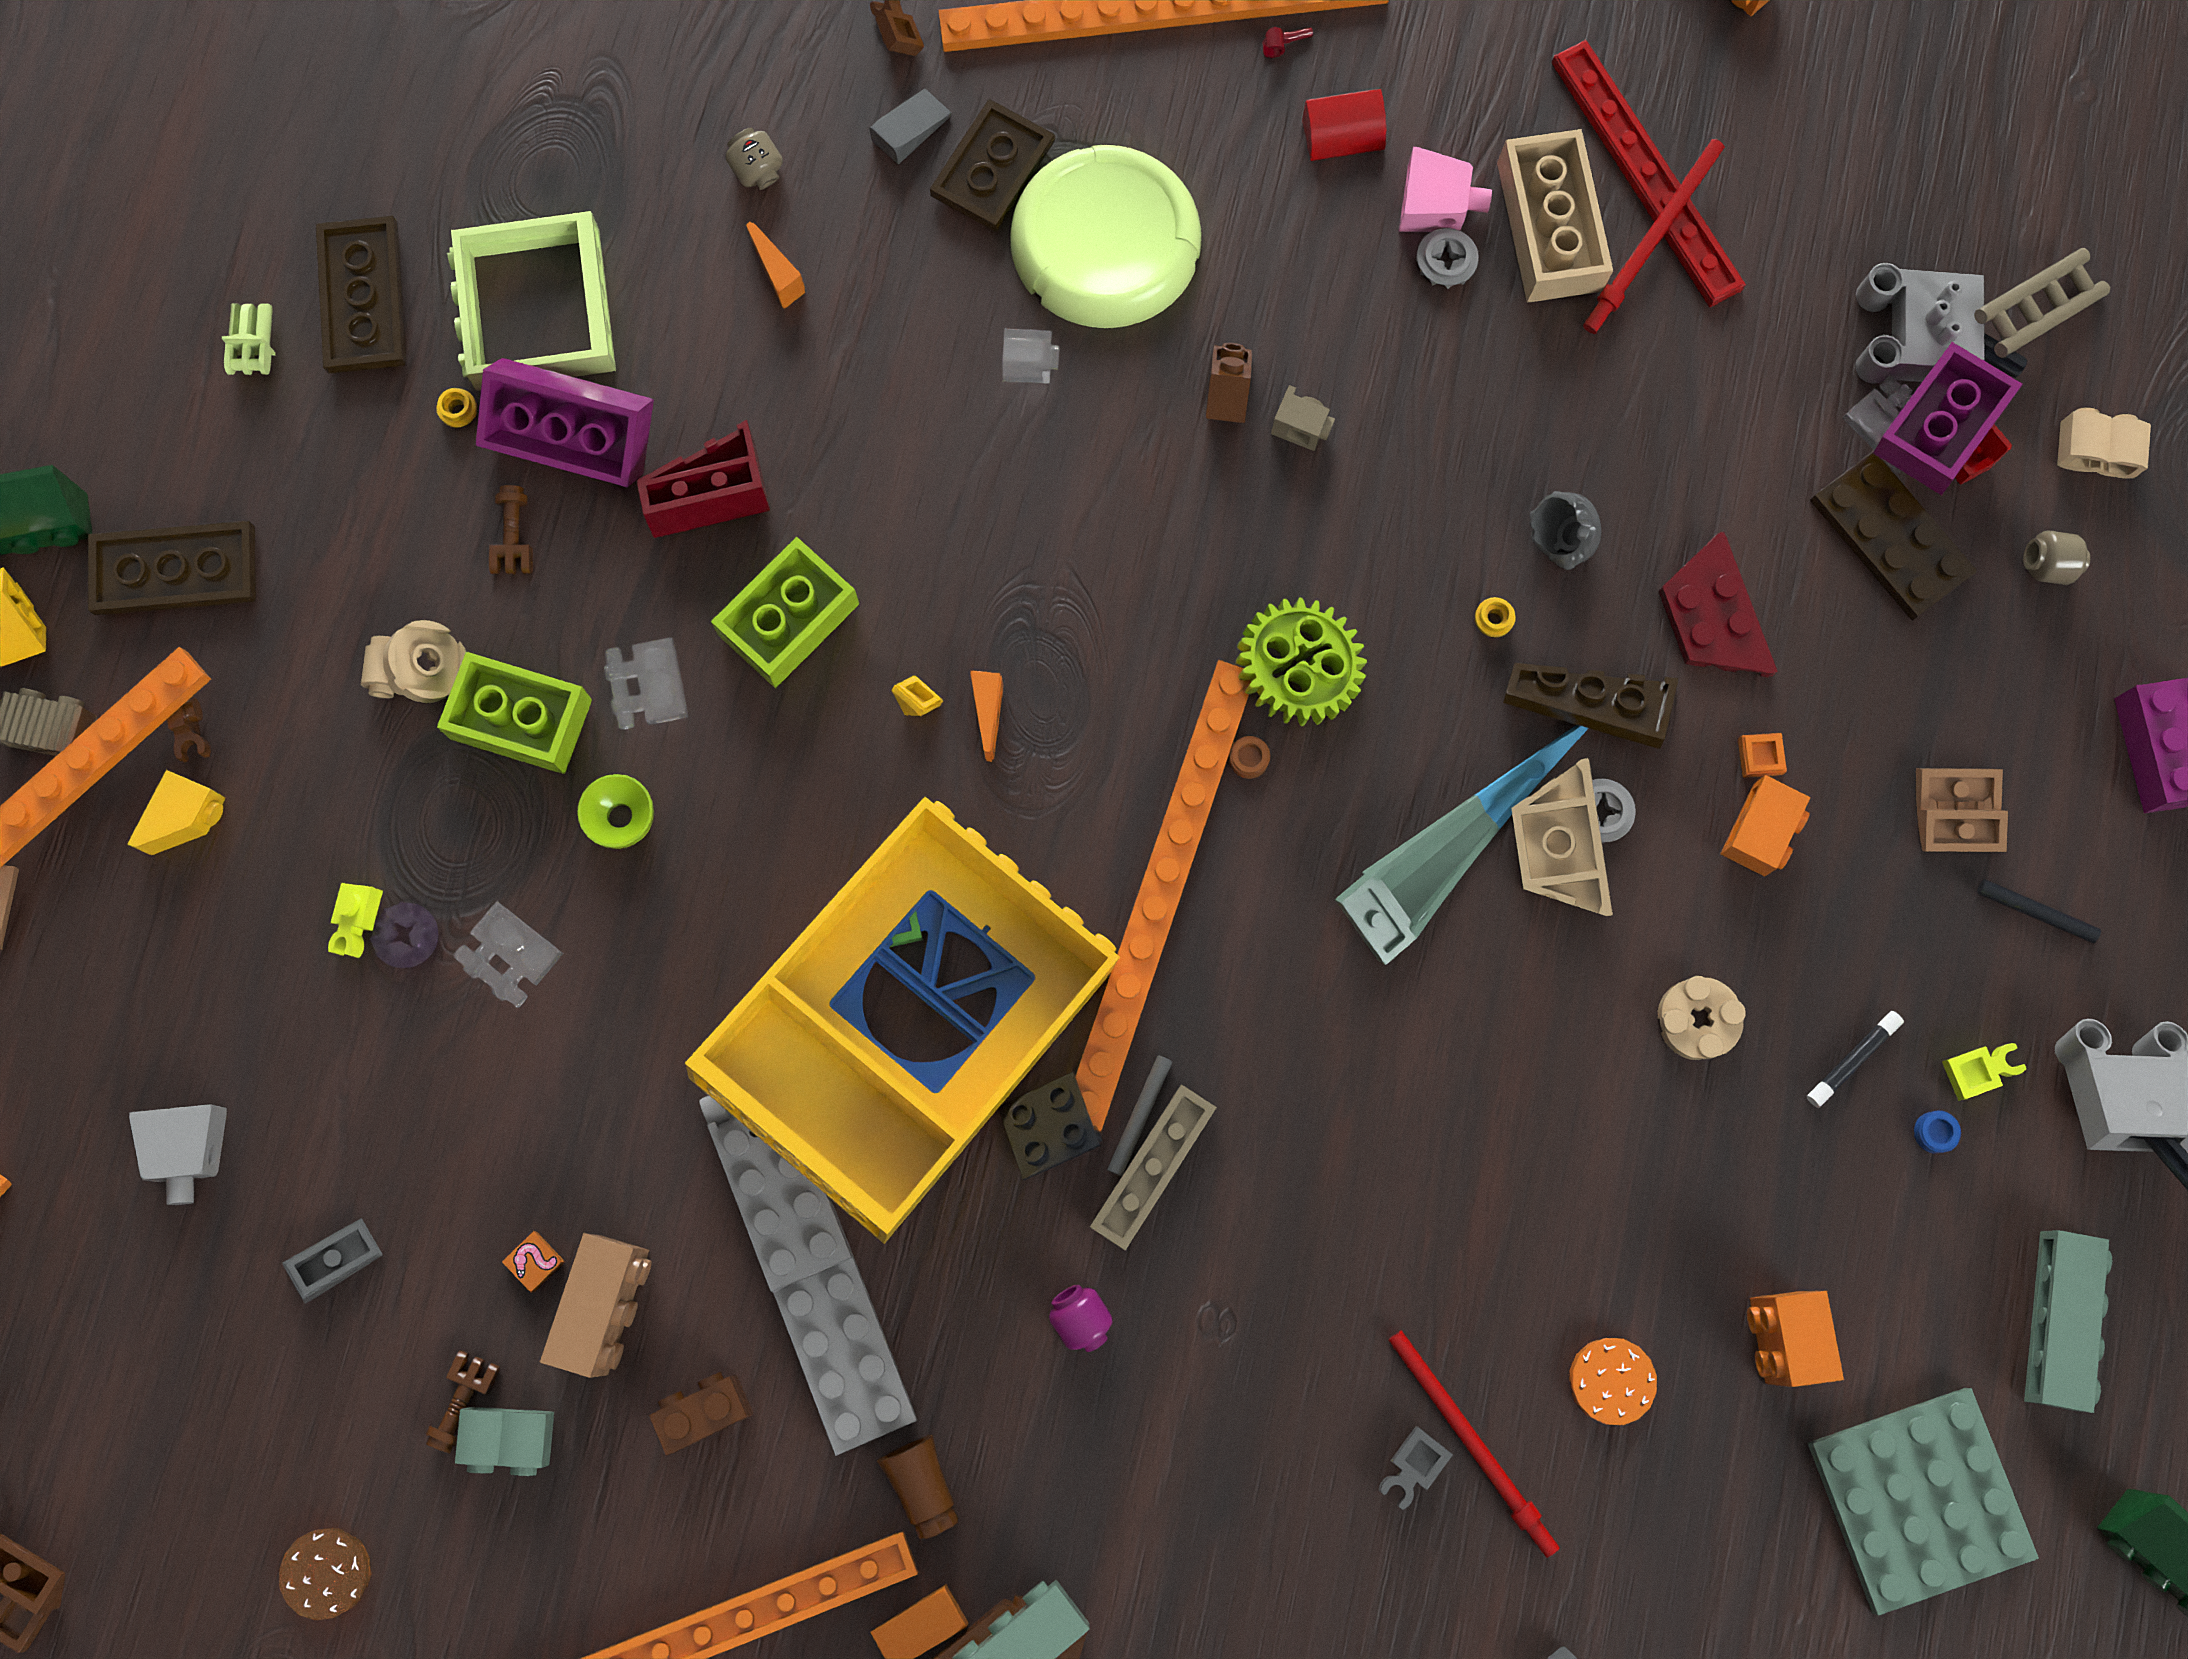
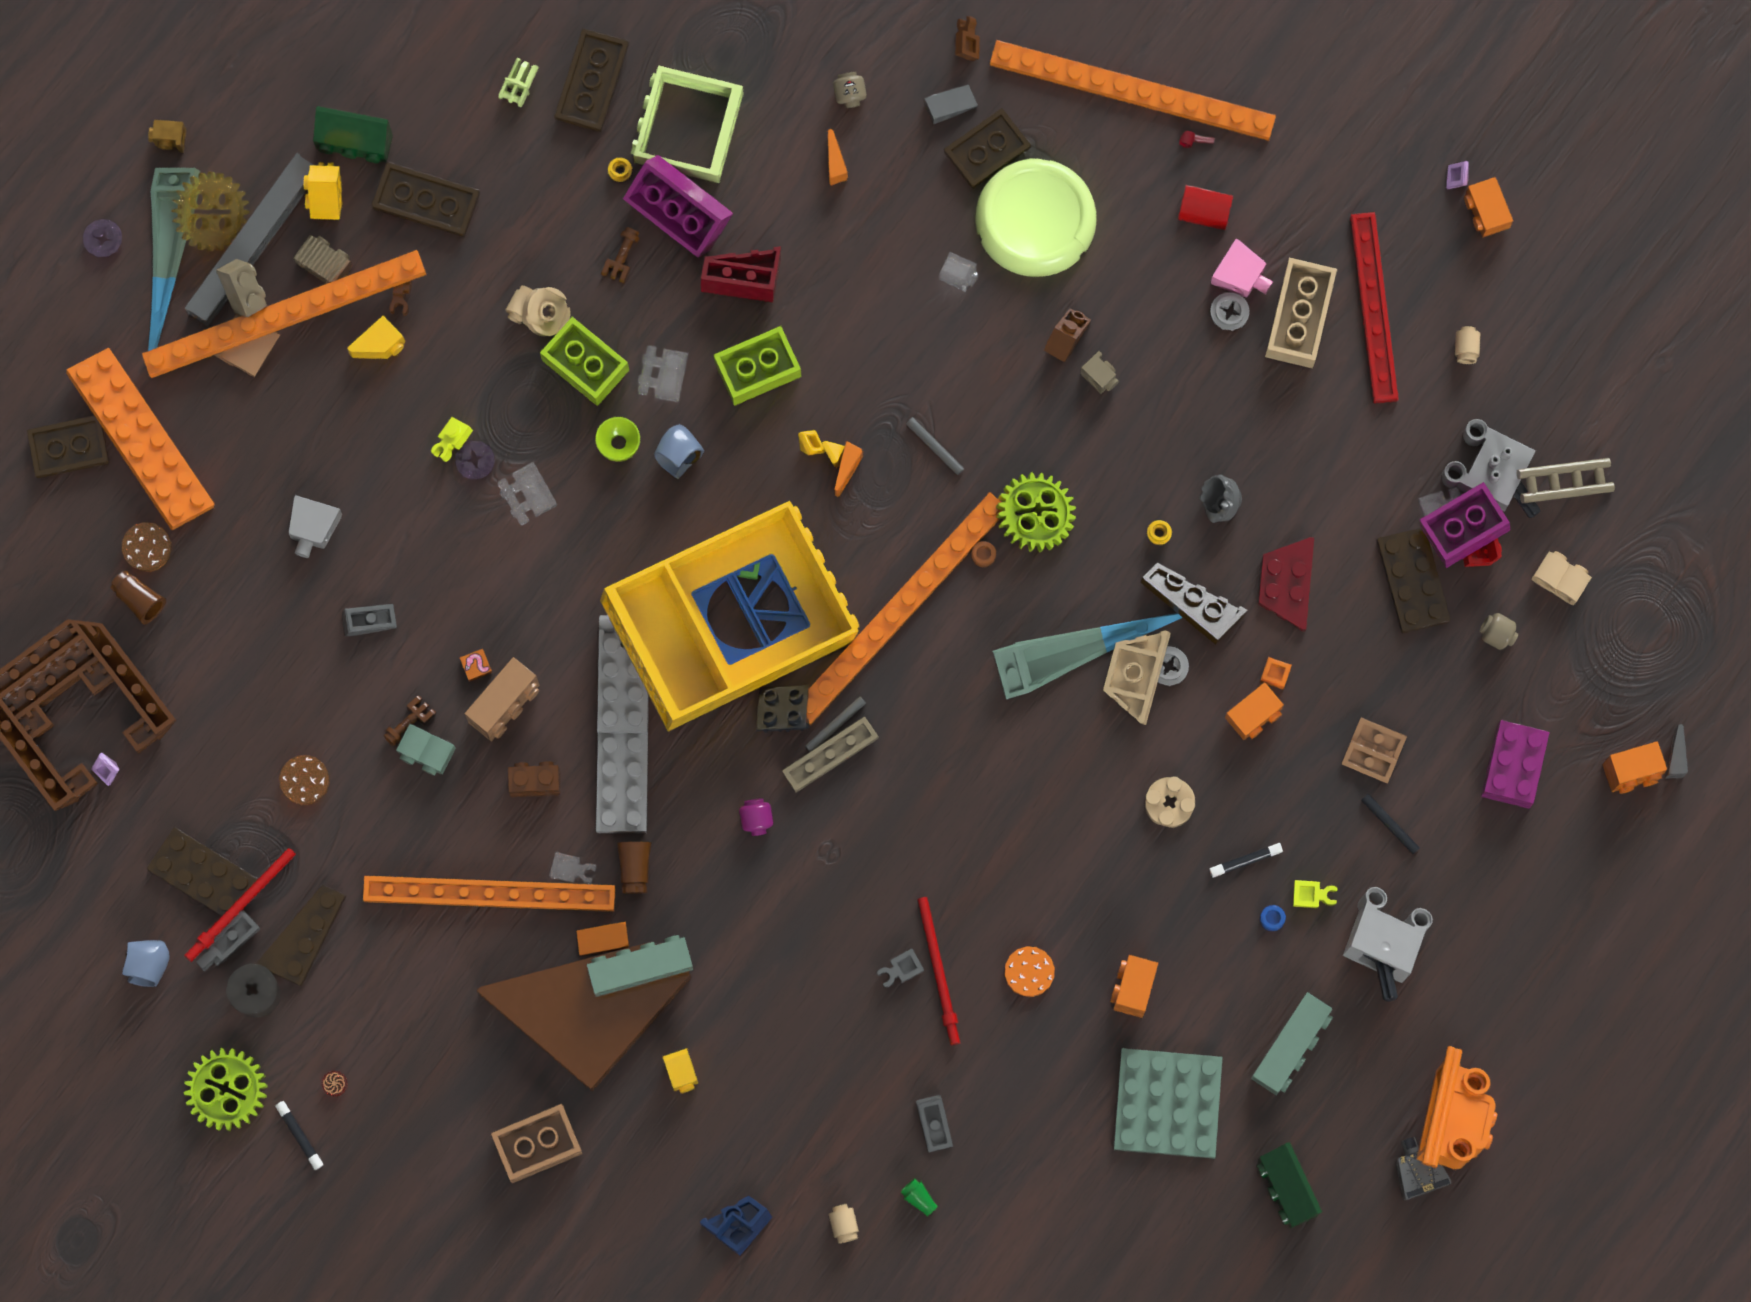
camera: 25 degrees right, 0 degrees up
(717, 791) = (678, 450): none -> sand blue piece
(813, 1534) = (568, 868): none -> clear plate
(958, 695) = (834, 452): none -> yellow slope
(1105, 625) = (934, 446): none -> dark grey bar
(1613, 294) = (1316, 373): red bar -> none
(1807, 170) = (1467, 345): none -> tan brick

